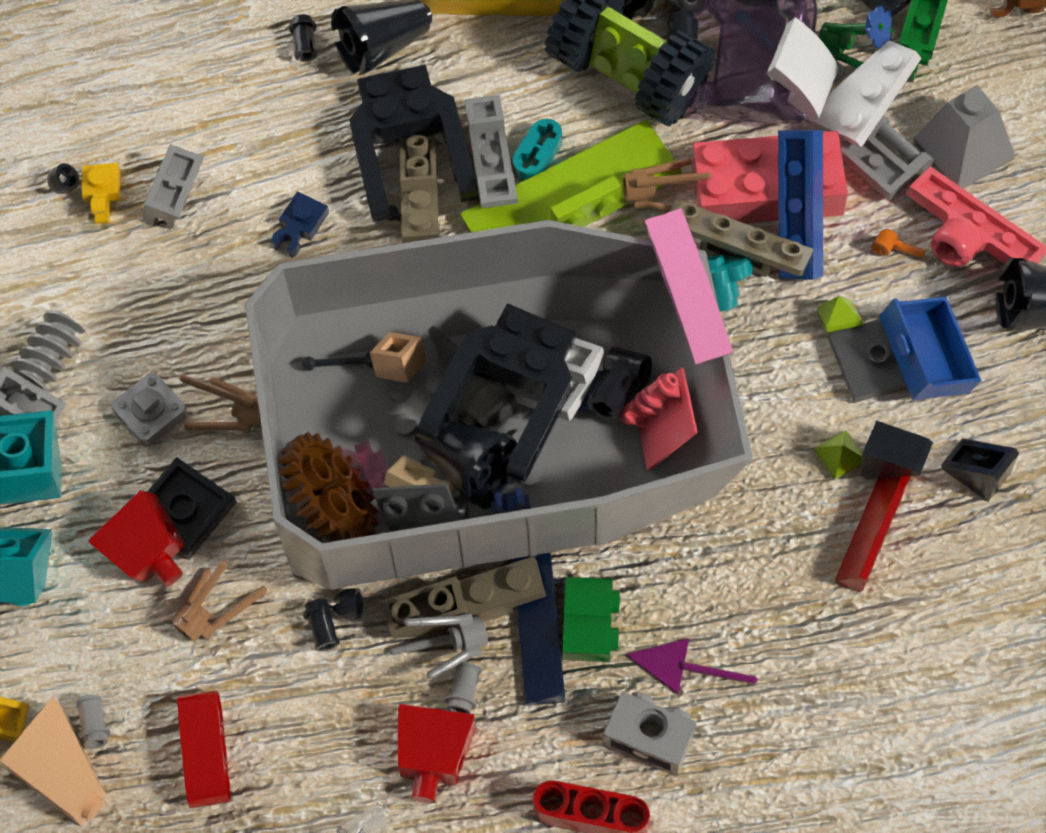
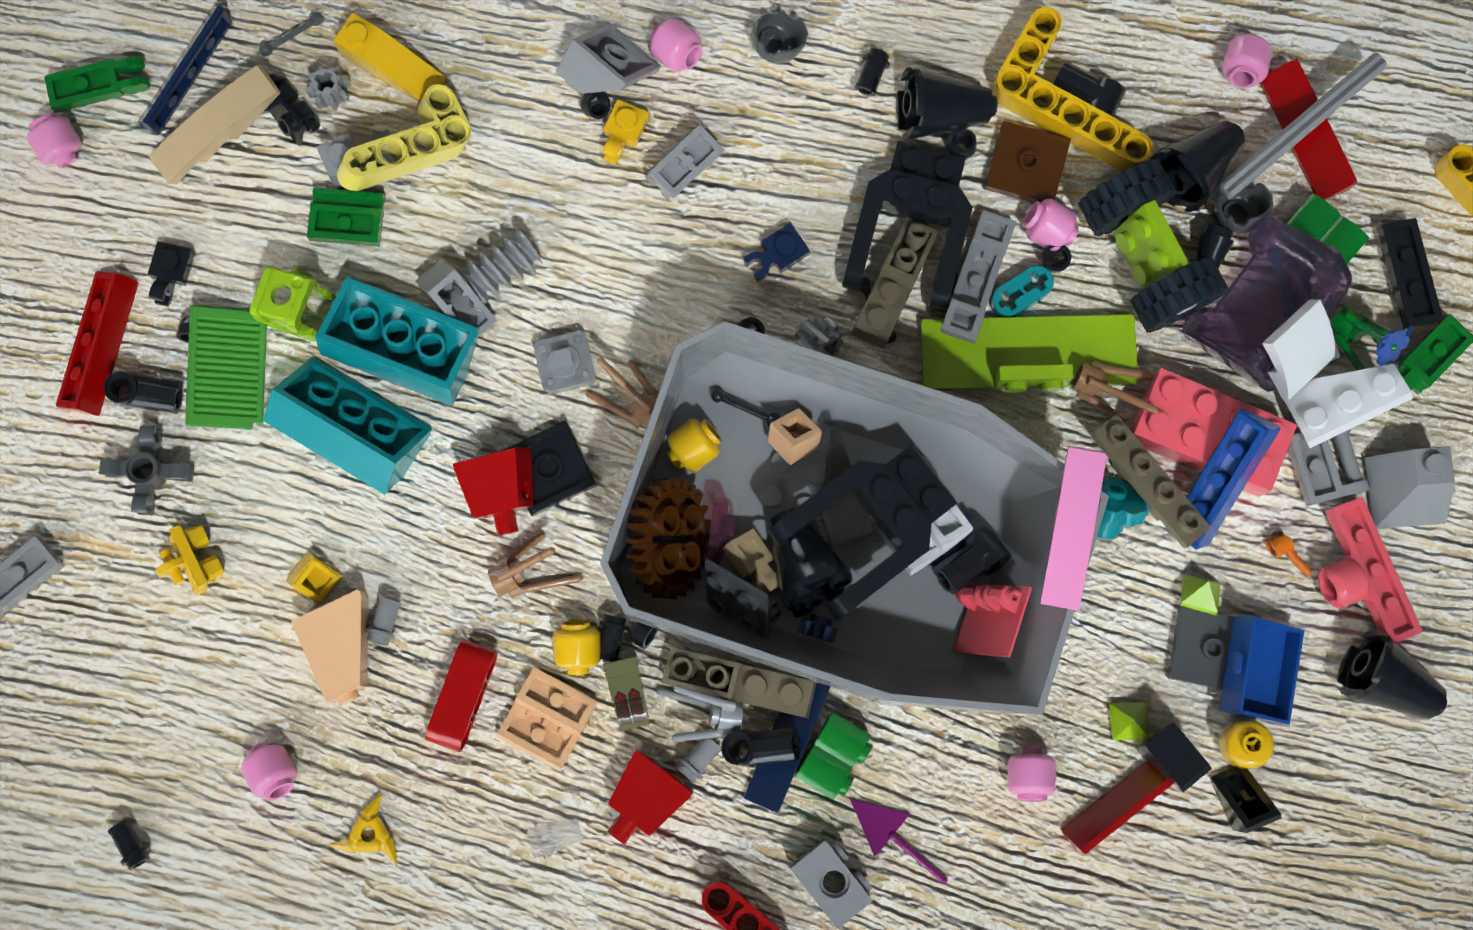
camera: 25 degrees right, 15 degrees up
(51, 139) = (604, 62): none -> light grey slope
(113, 96) = (676, 45): none -> bright pink head
(204, 47) = (778, 37): none -> dark grey hair
(292, 646) = (576, 646): none -> yellow head
(298, 730) = (547, 719): none -> light nougat slope
(309, 411) = (693, 445): none -> yellow head
(362, 663) = (627, 693): none -> olive leg
(419, 51) = (968, 140): none -> black hinge
(483, 47) = (1027, 163): none -> reddish brown plate
(519, 640) = (763, 747): none -> black piece
(531, 82) = (1050, 224): none -> bright pink head
(545, 103) = (1060, 265): none -> black hinge
(779, 541) = (1031, 775): none -> bright pink head
(953, 415) = (1234, 744): none -> yellow head

